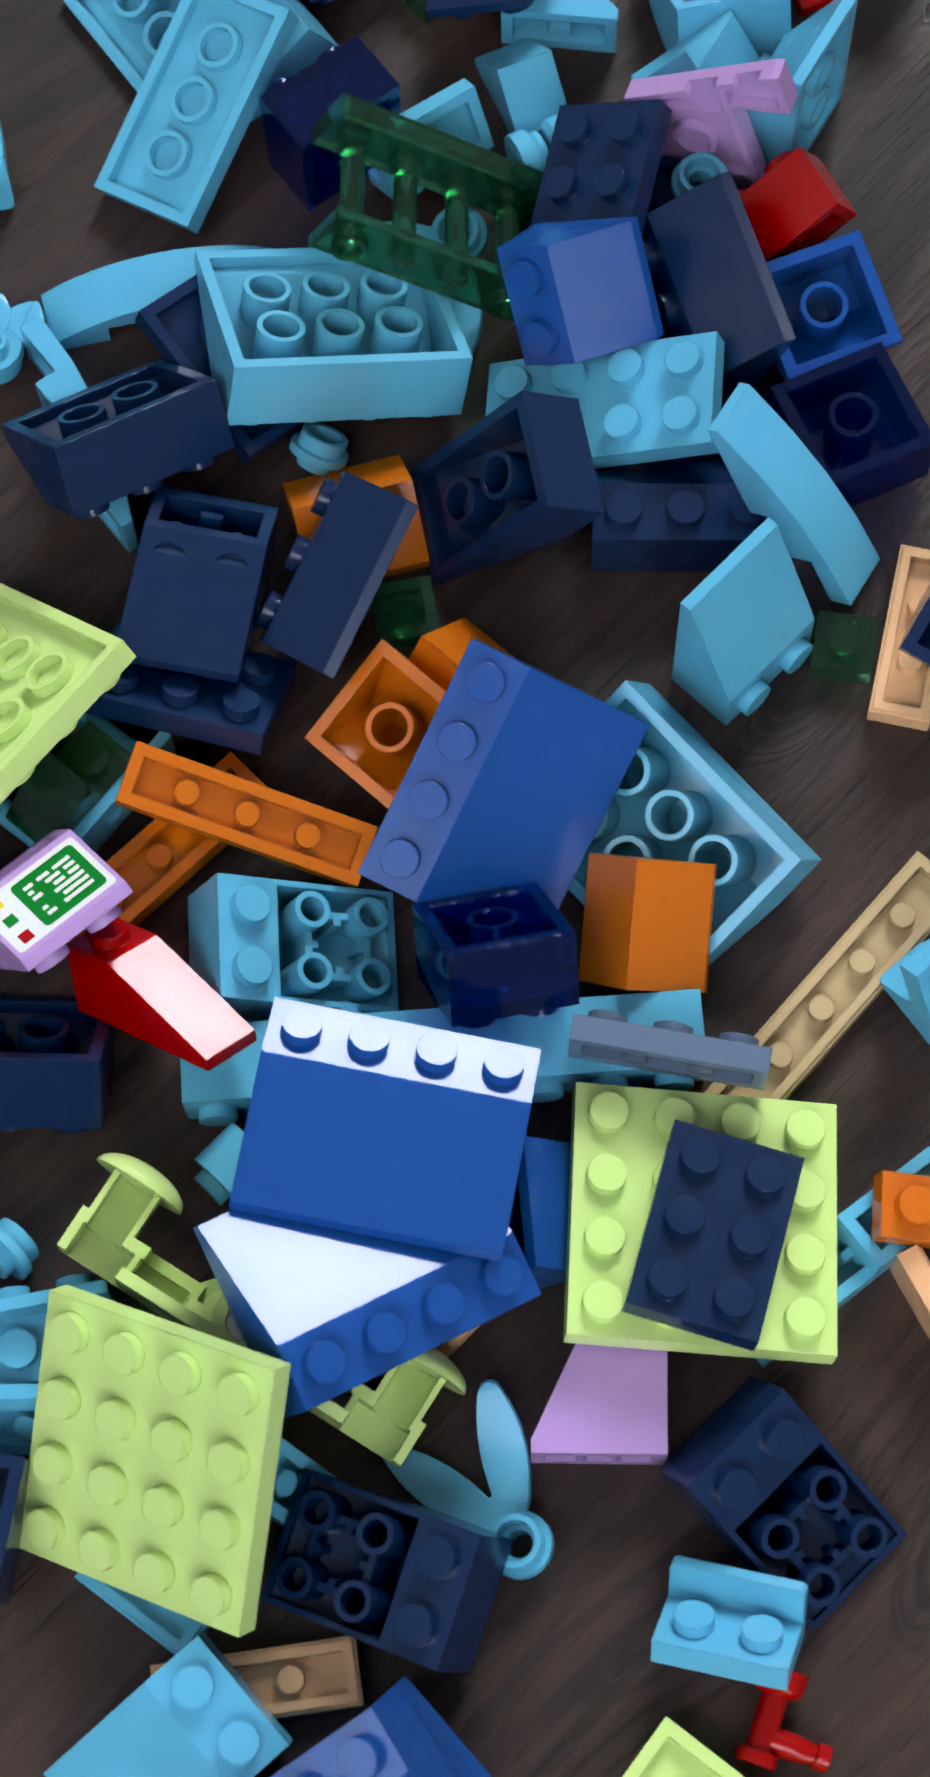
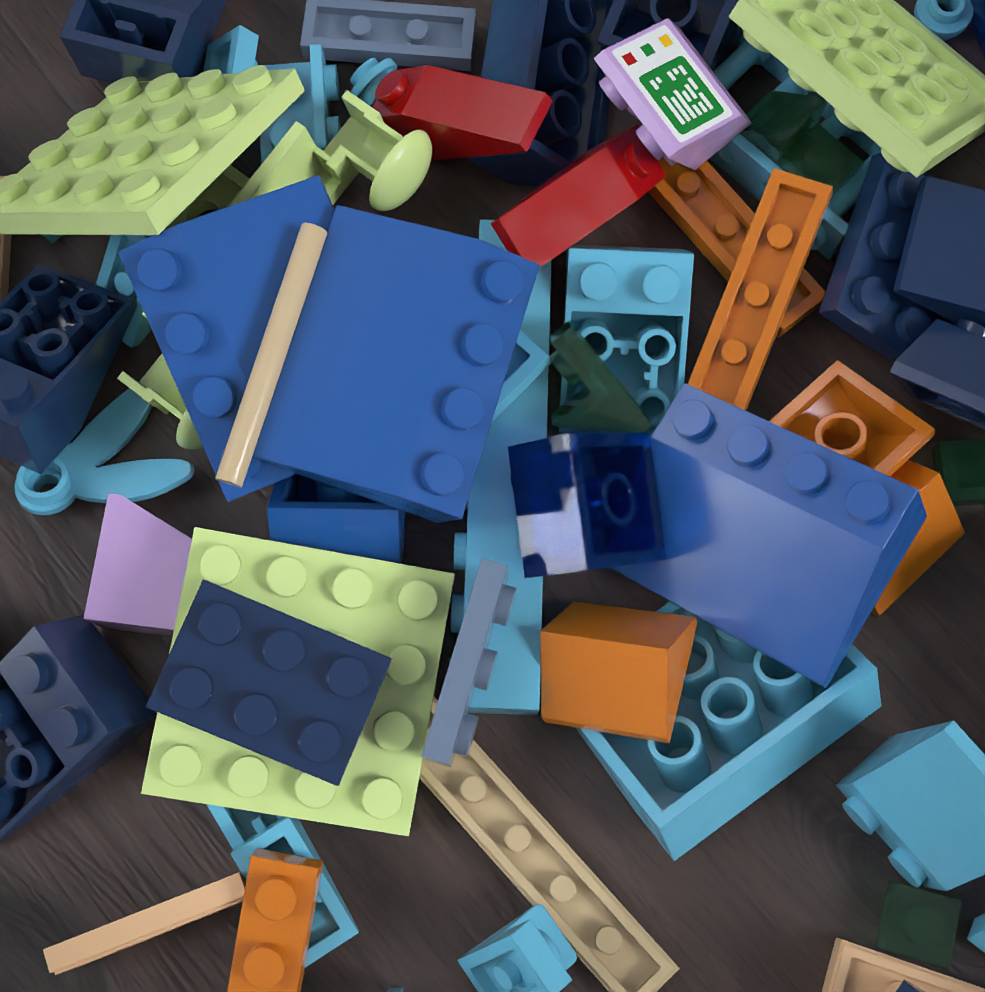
camera: 95 degrees right, 5 degrees up
(66, 1131) = (461, 111): none -> red slope
(375, 962) = (604, 399): none -> clear green slope
(396, 1245) = (271, 355): none -> tan bar

